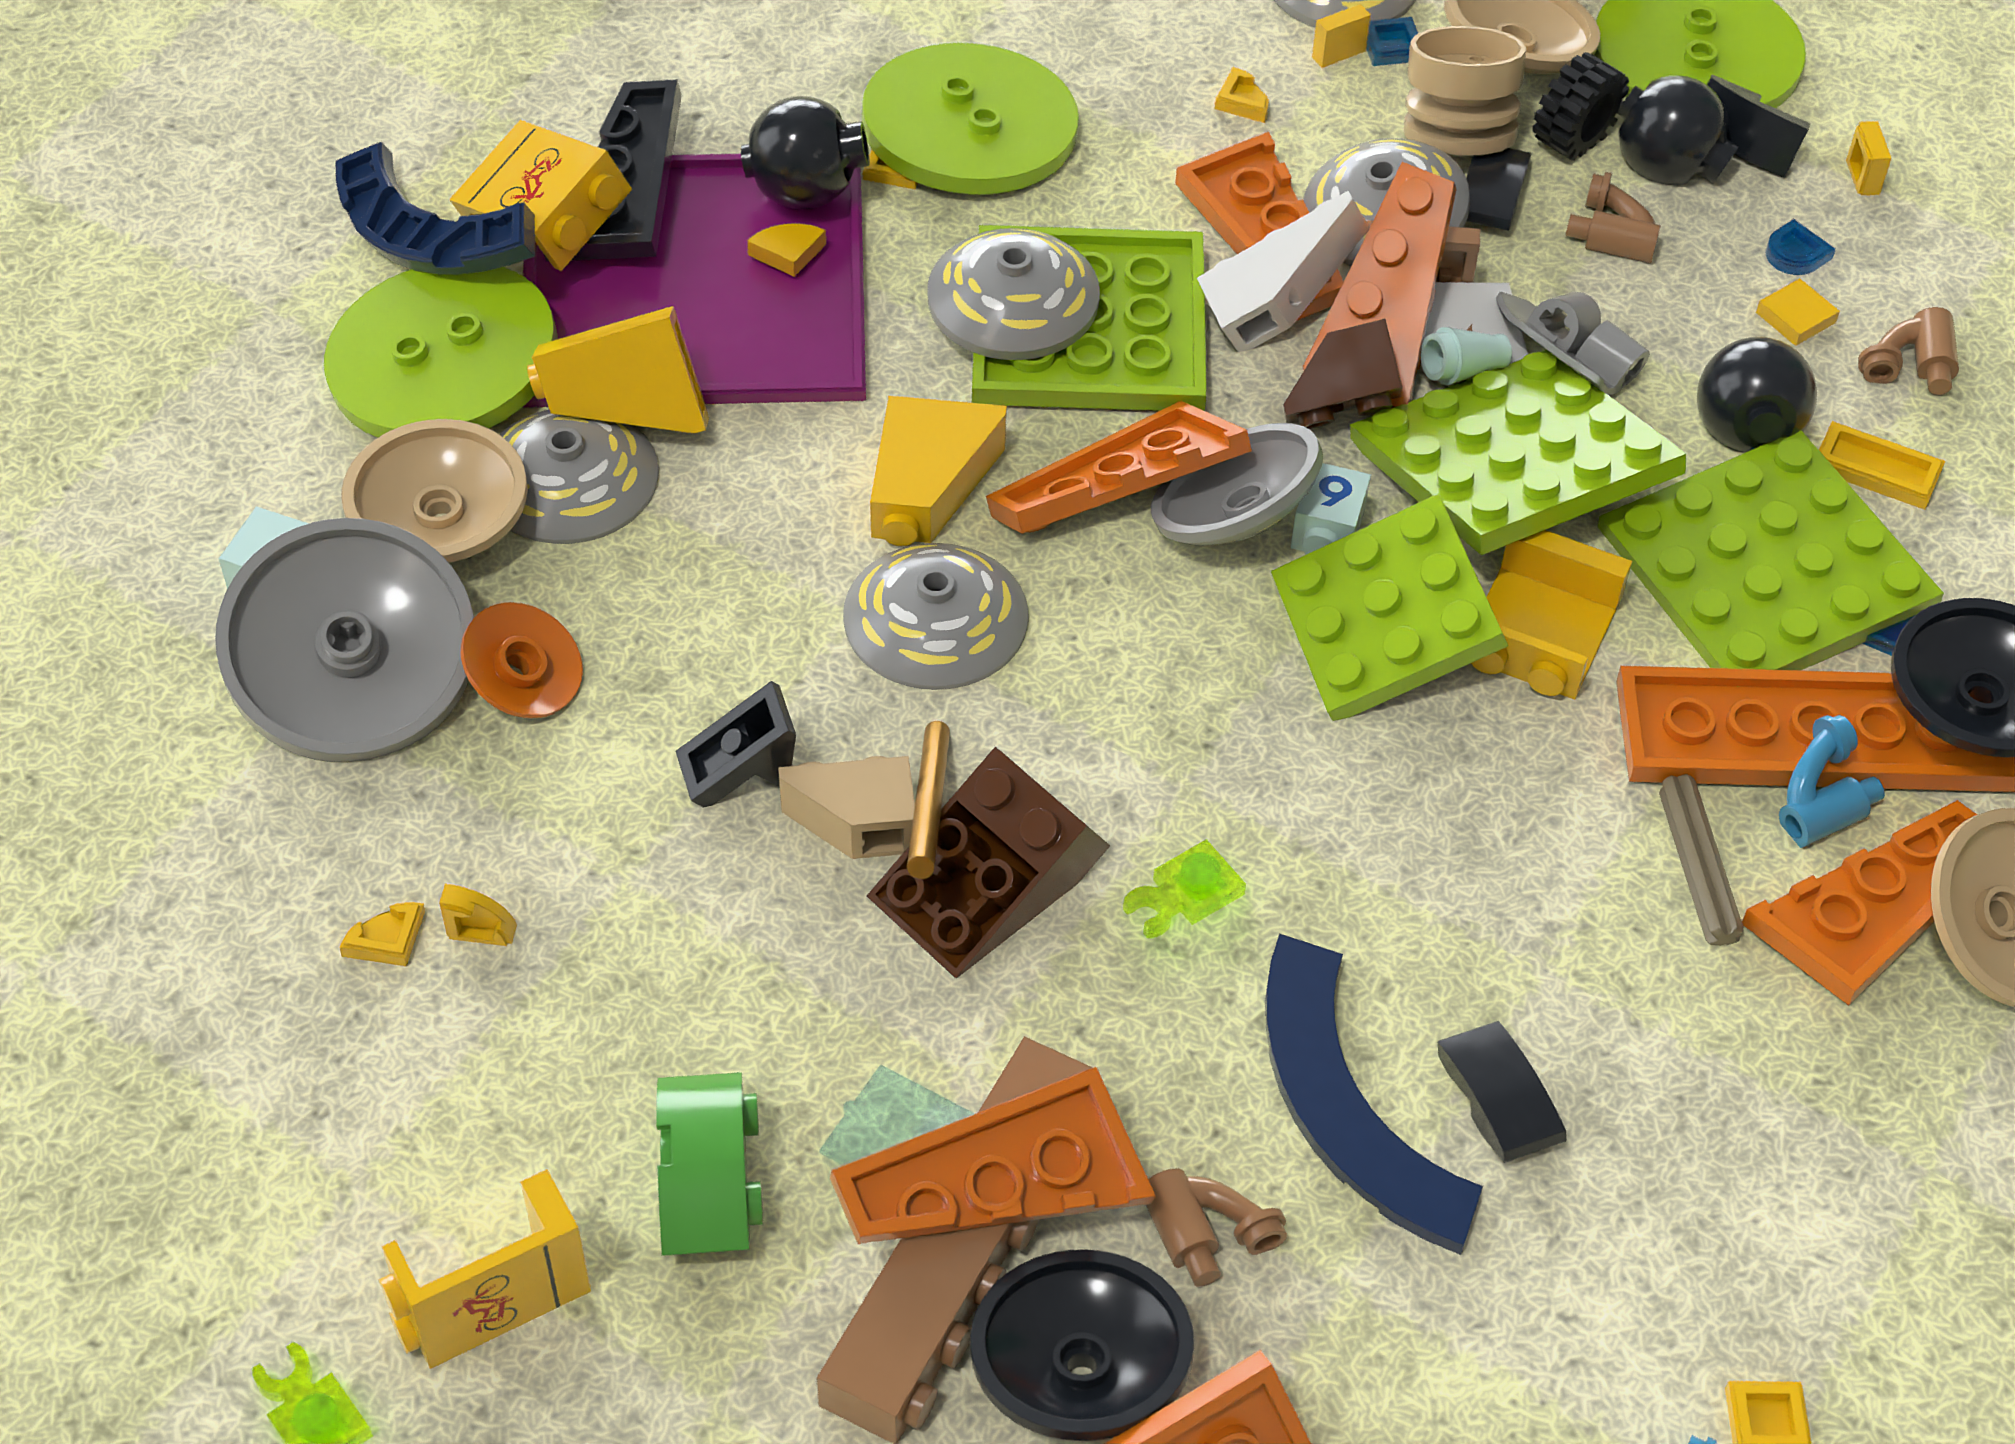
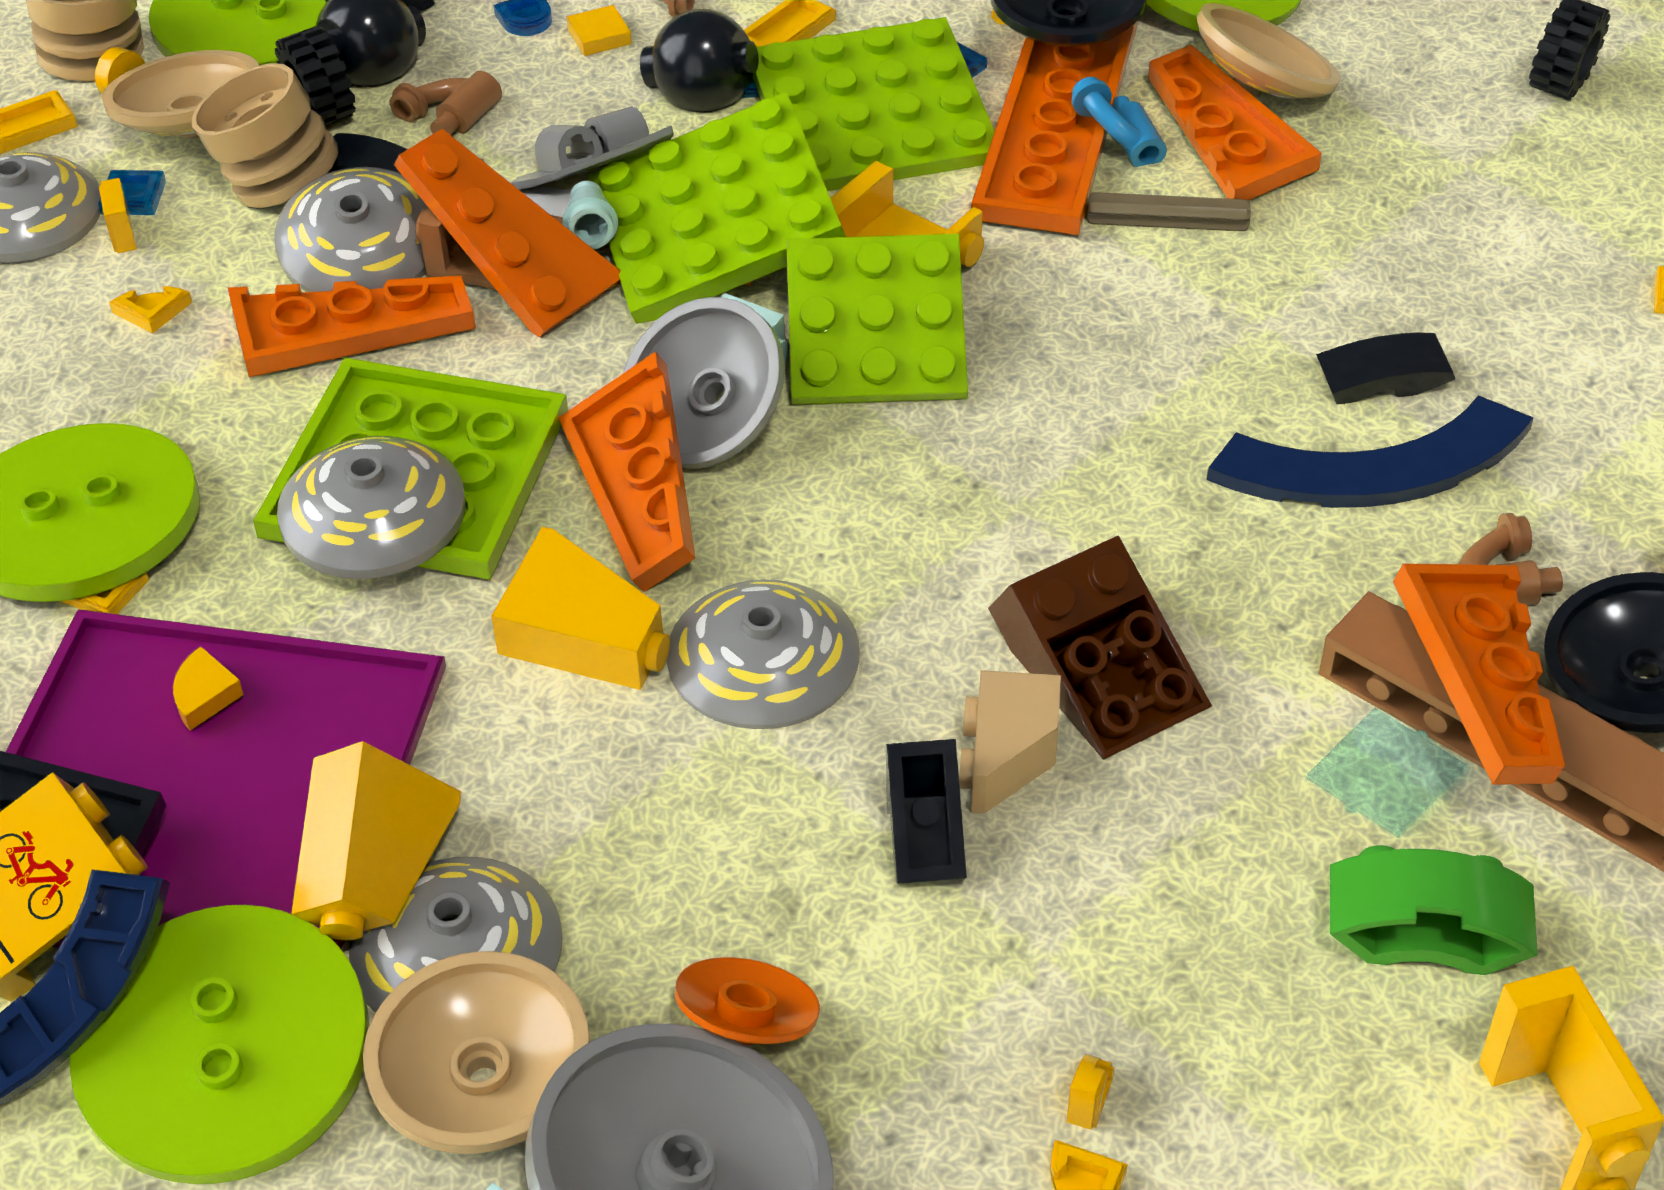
camera: 75 degrees left, 5 degrees down
(803, 152) = (96, 628): black brick -> none
(928, 800) = (1044, 661): pearl gold bar -> none
(1190, 883) = (1143, 518): clear neon green plate -> none
(1278, 277) = (455, 308): white slope -> none
(1346, 372) = (591, 286): reddish brown slope -> none

